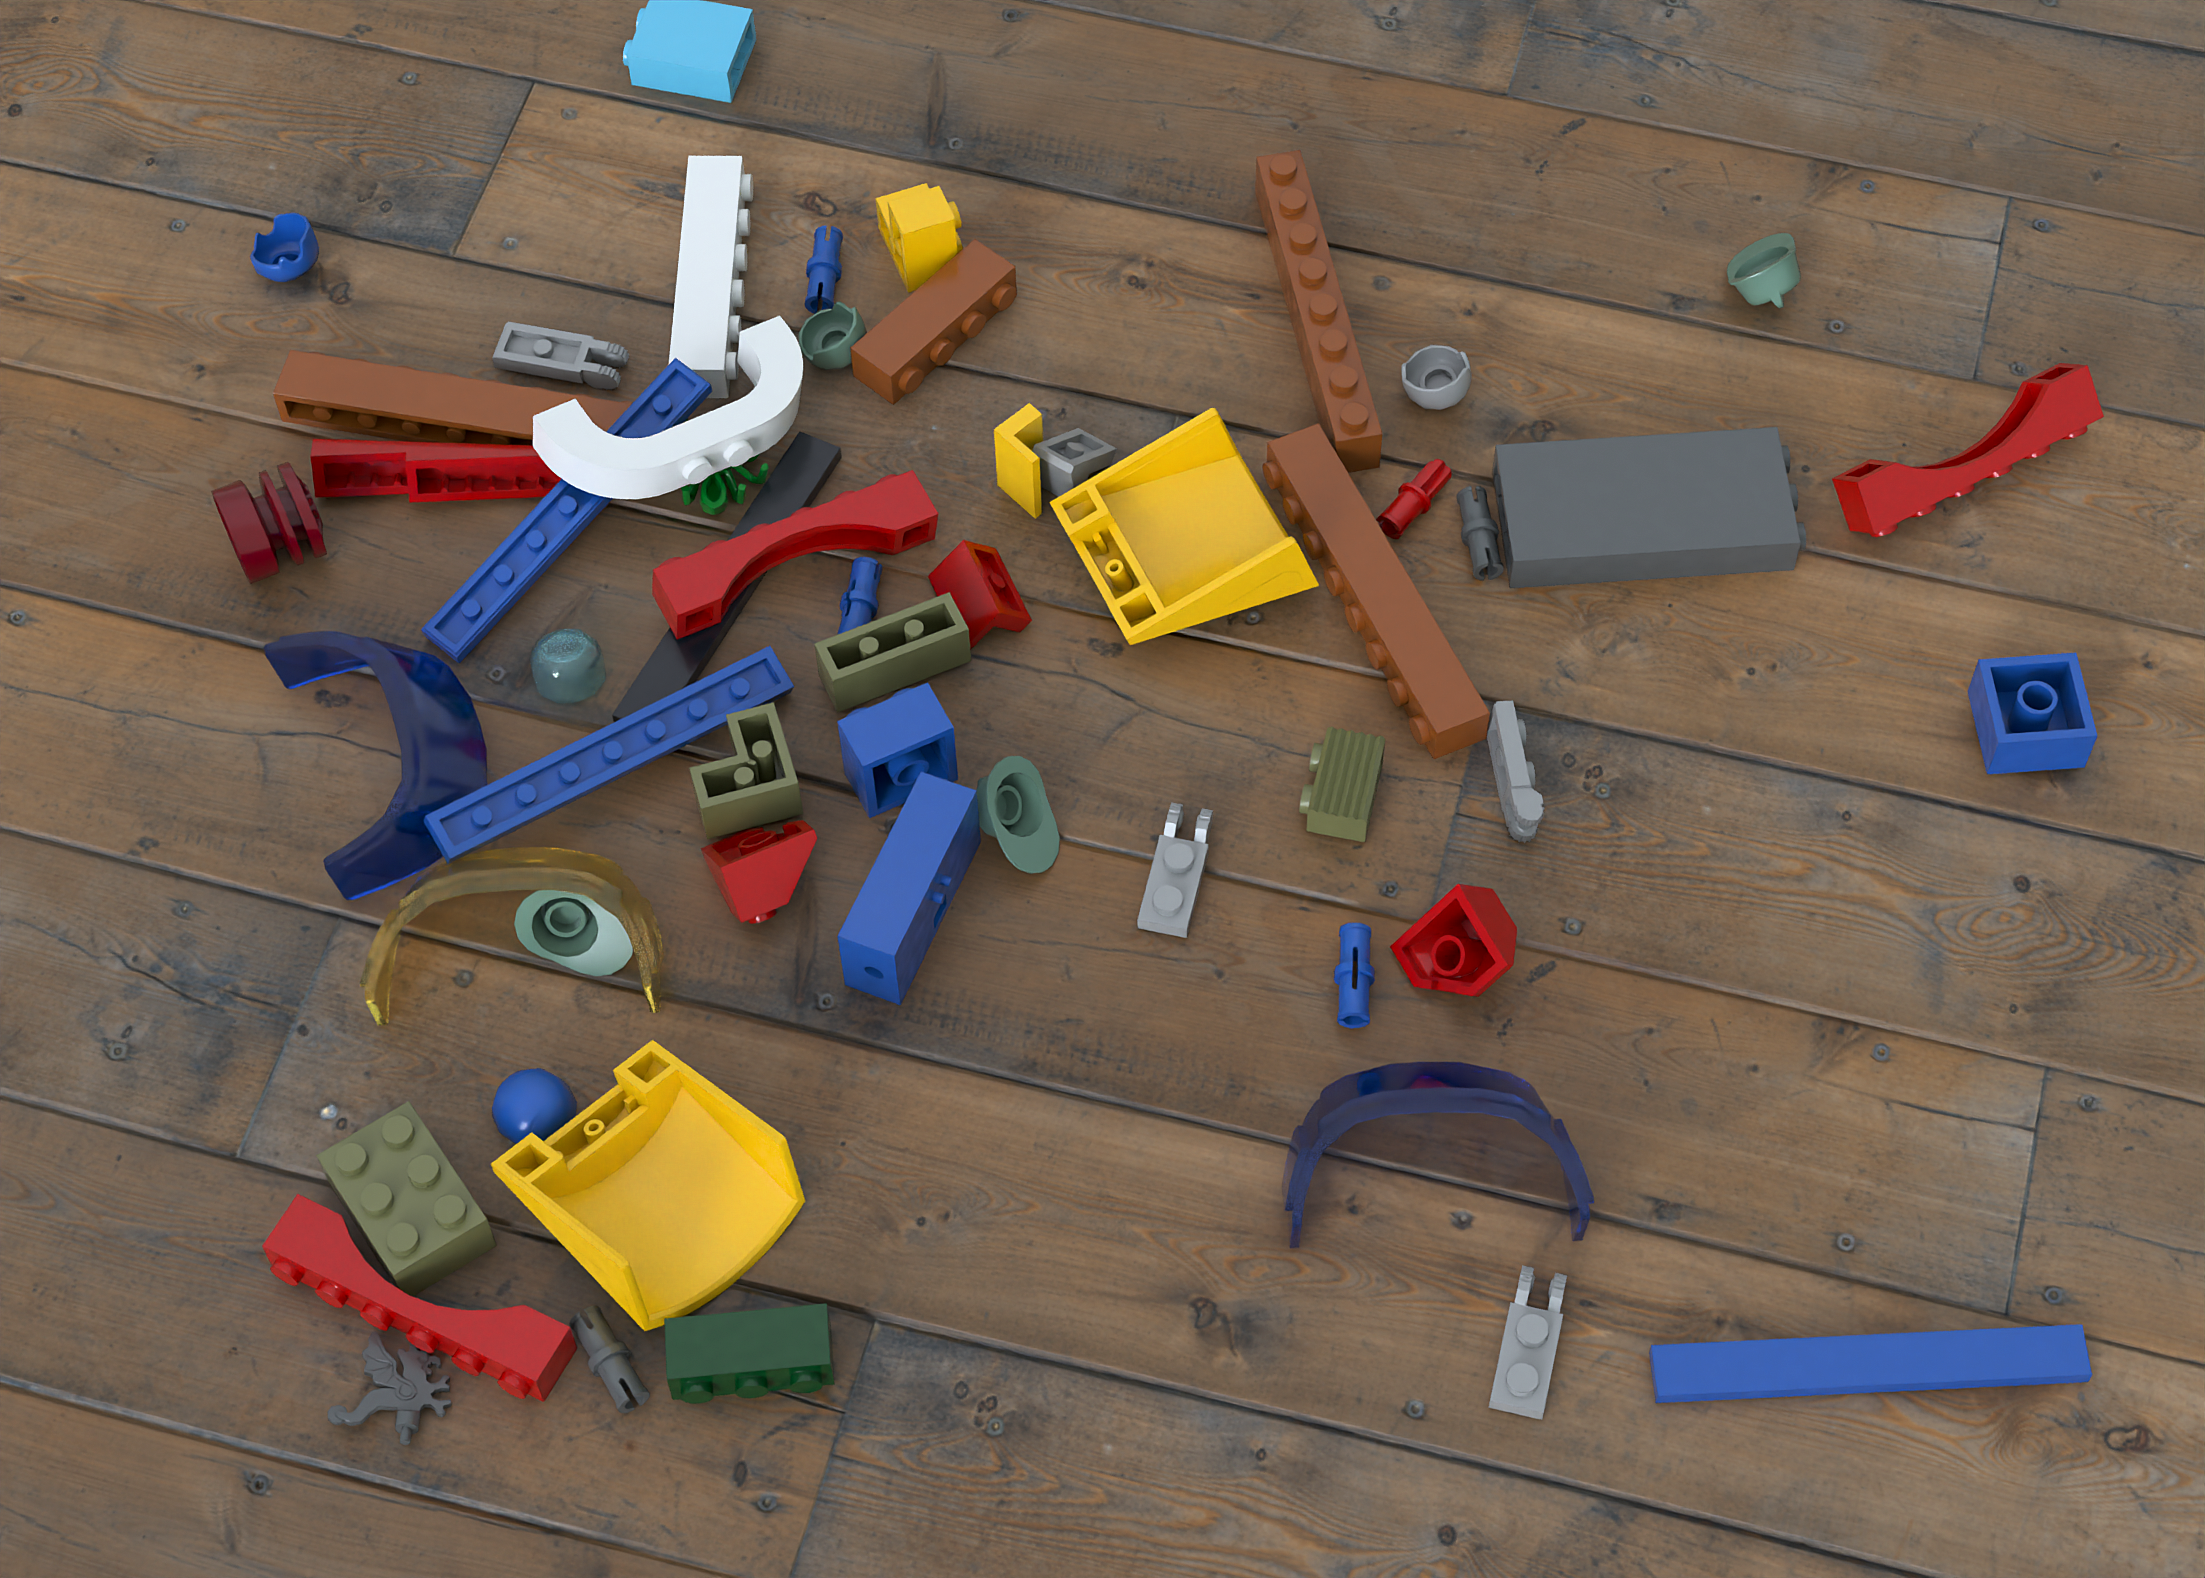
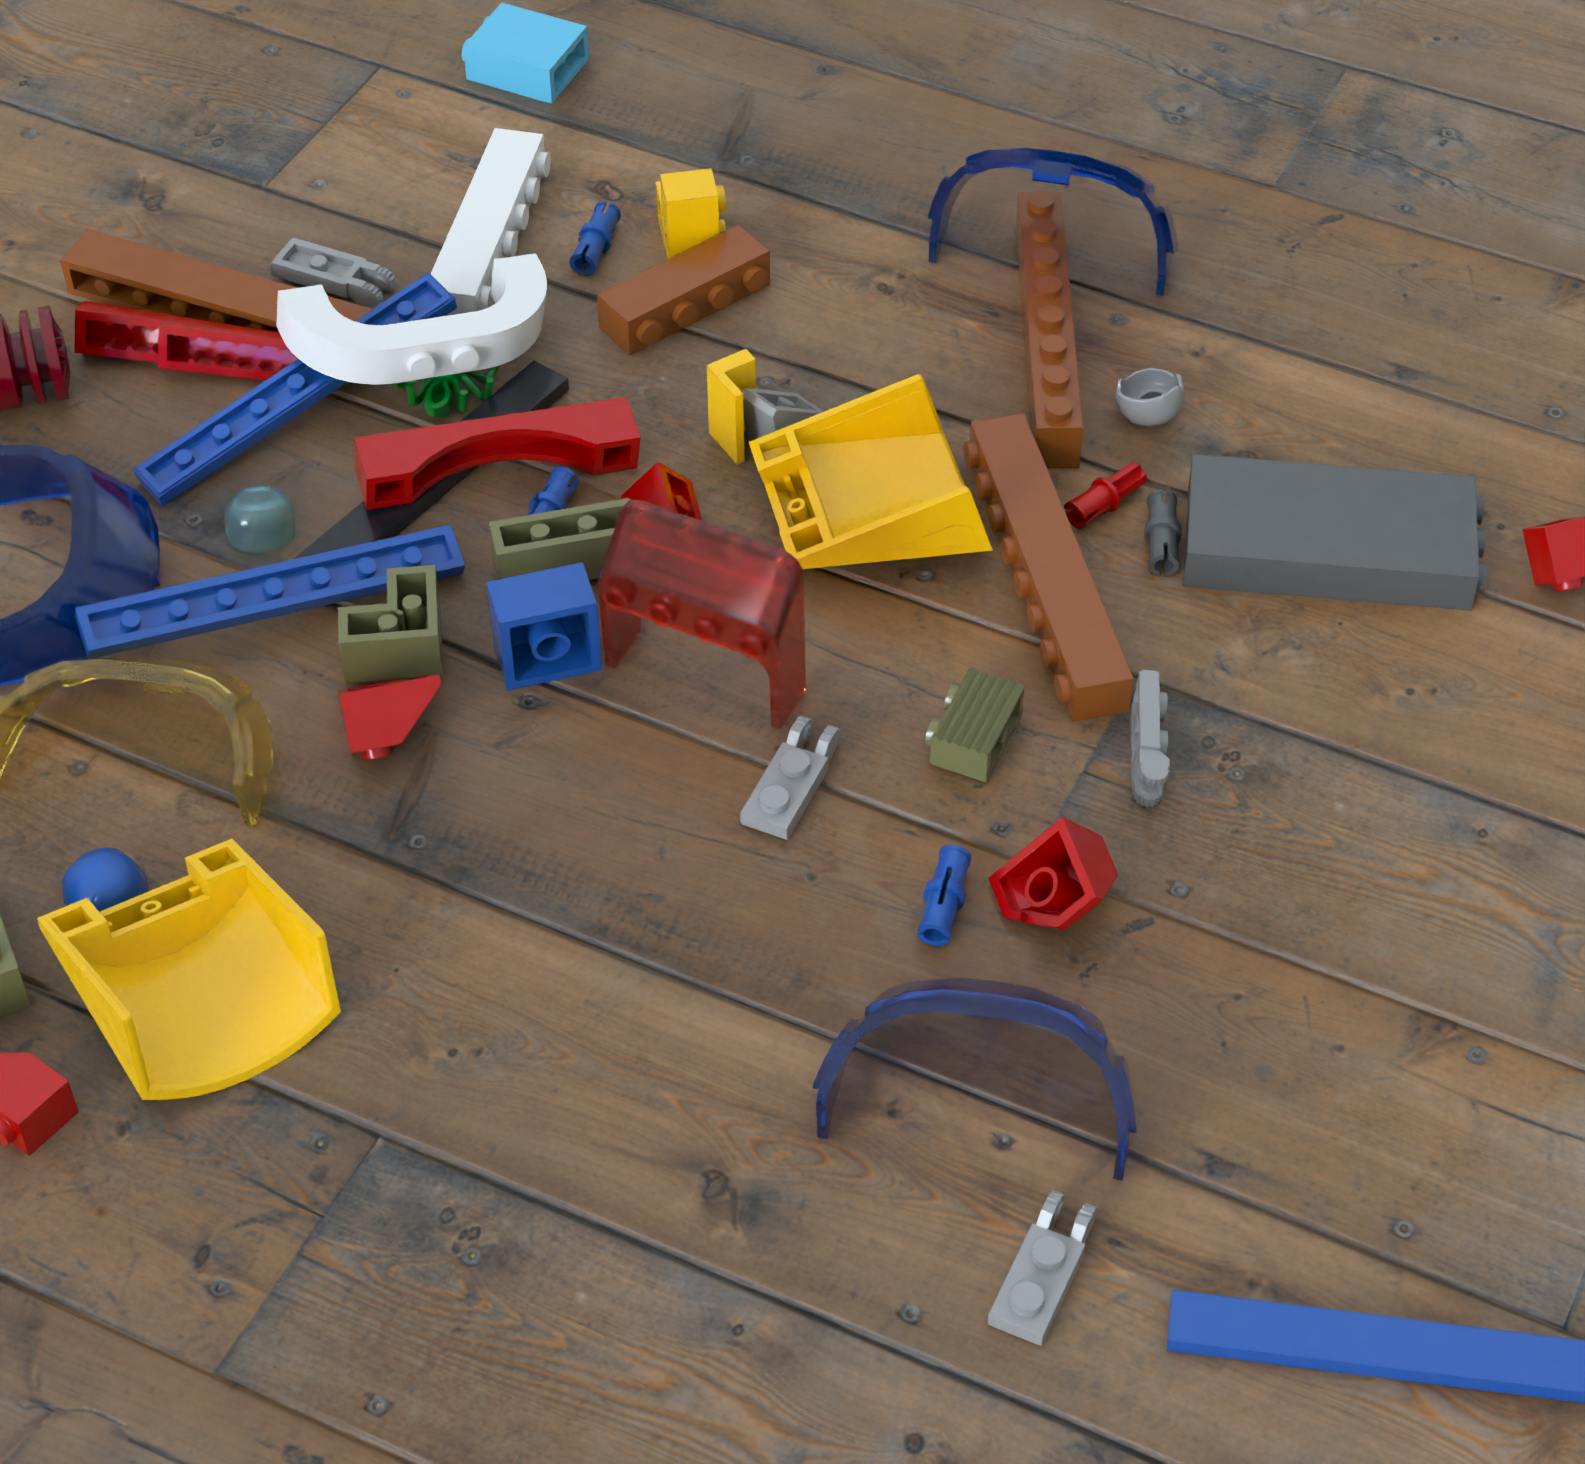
camera: 10 degrees right, 10 degrees down
(287, 250) = (117, 159): blue hair -> none
(572, 932) = (185, 735): sand green piece -> none
(609, 1359) = (103, 1124): dark grey pin -> none
(749, 1353) = (241, 1139): dark green brick -> none
(829, 335) = (578, 288): sand green hair -> none
(910, 888) = (520, 745): blue brick -> none
(1019, 814) = (647, 700): sand green piece -> none
(1062, 700) = (707, 586): none -> clear red windscreen
(1303, 145) = (1057, 168): none -> clear blue piece
(1766, 270) = (1493, 354): sand green piece -> none

